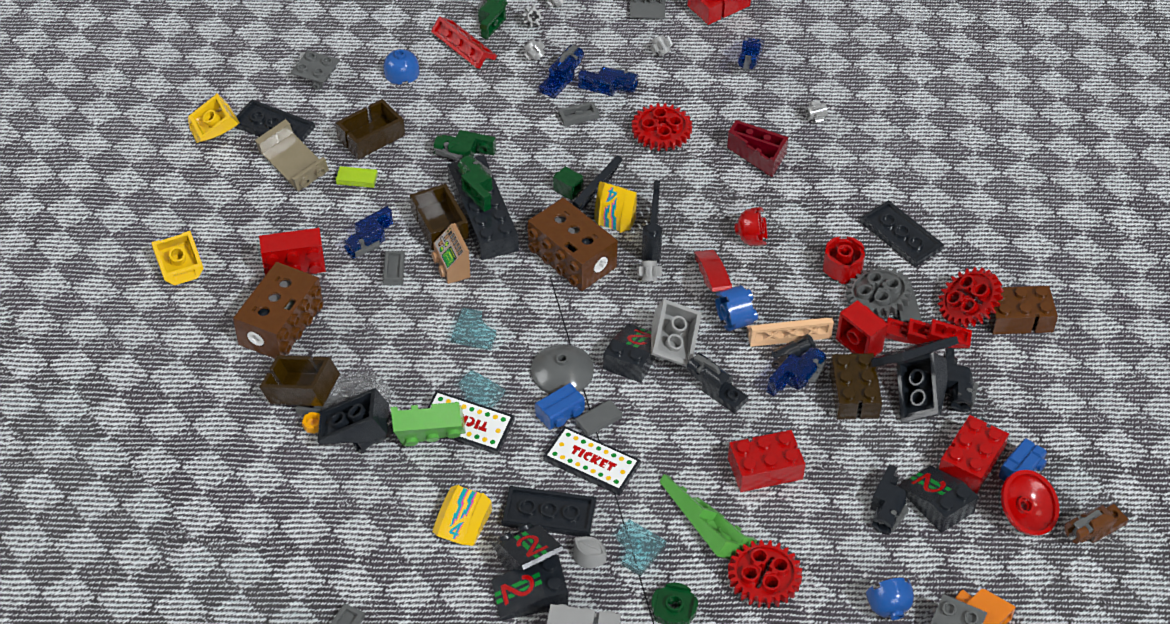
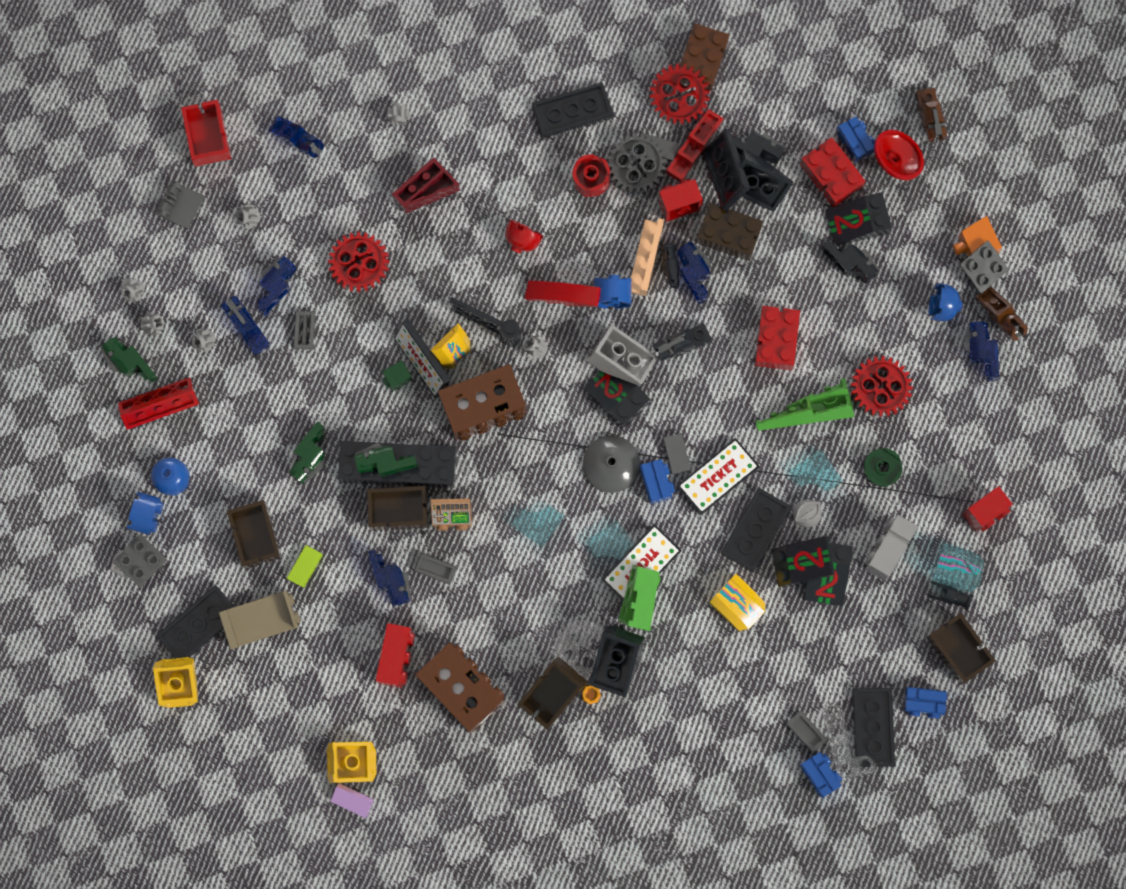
camera: 65 degrees left, 30 degrees up
(140, 271) = (352, 800): none -> lavender tile
(358, 55) = (144, 513): none -> blue brick

